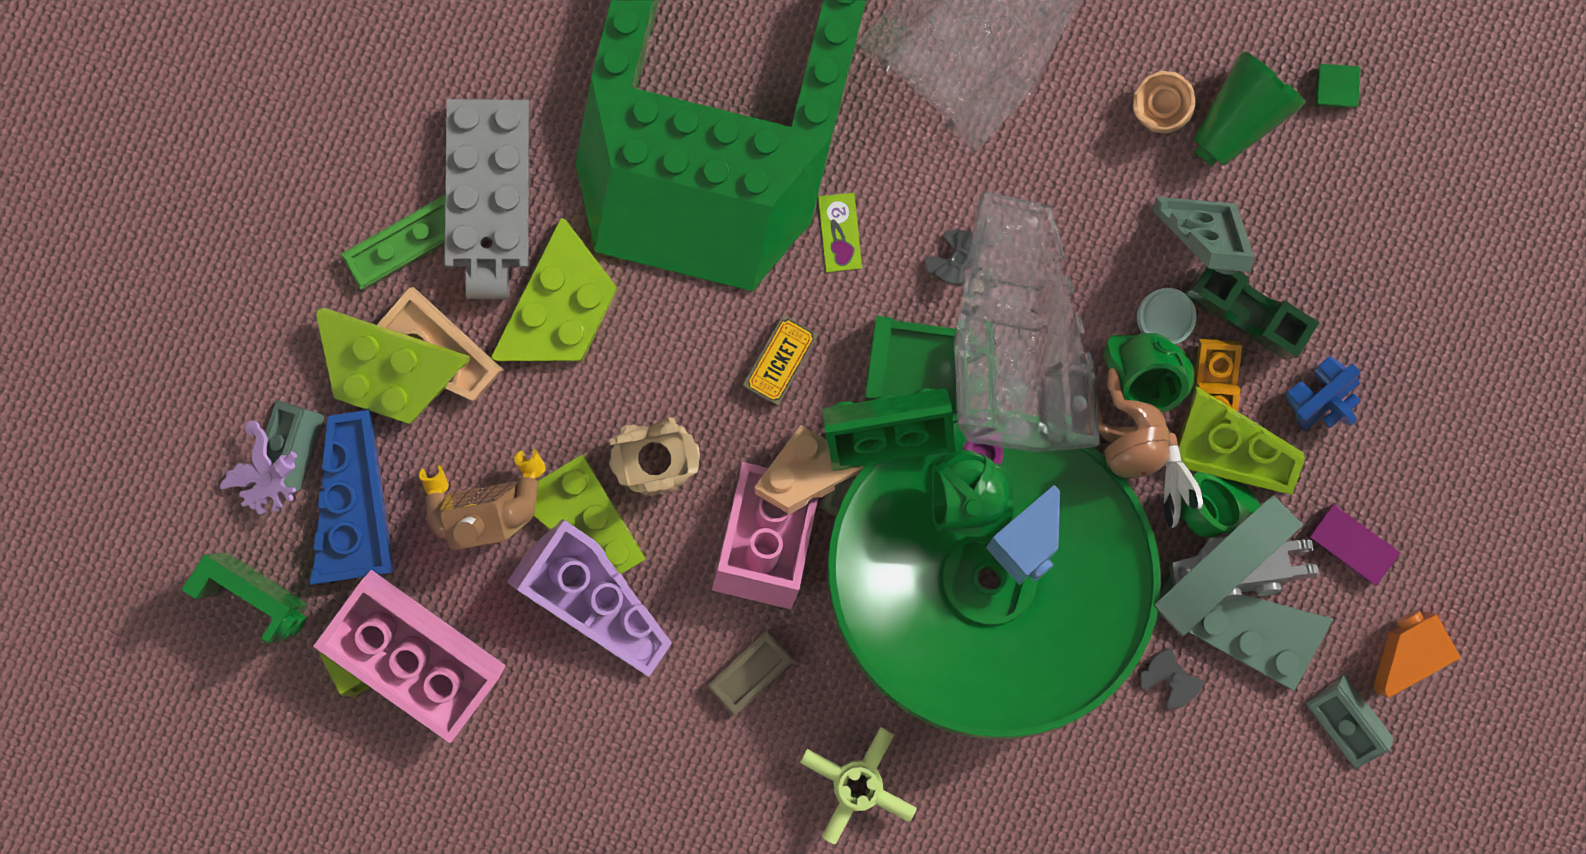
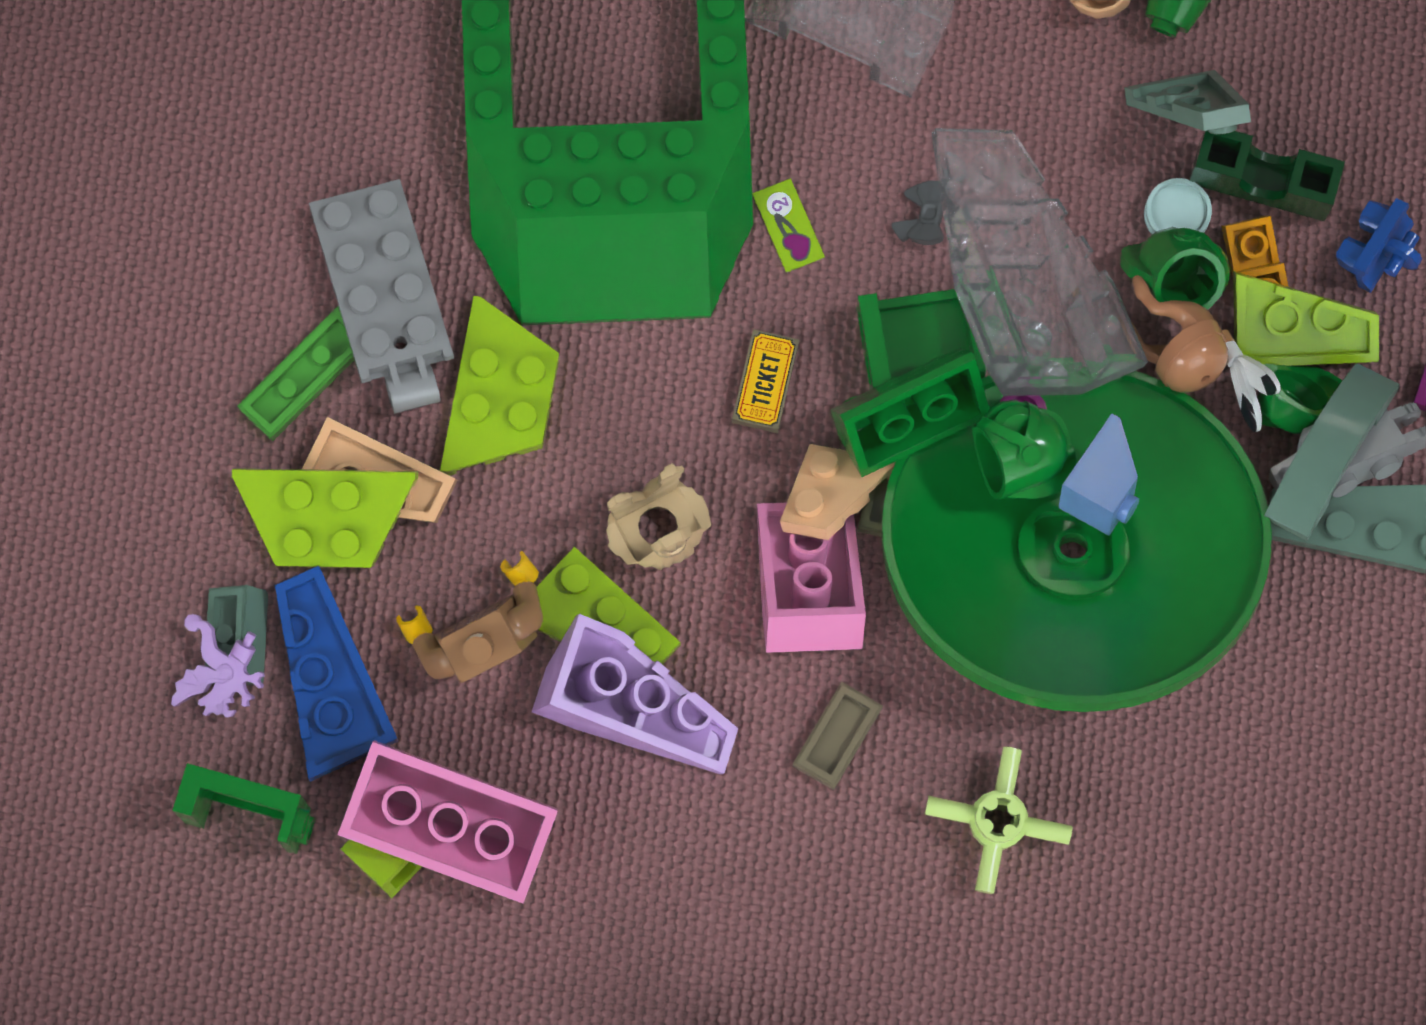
camera: 15 degrees left, 10 degrees down
(1164, 666) = (1301, 593): dark grey piece -> none

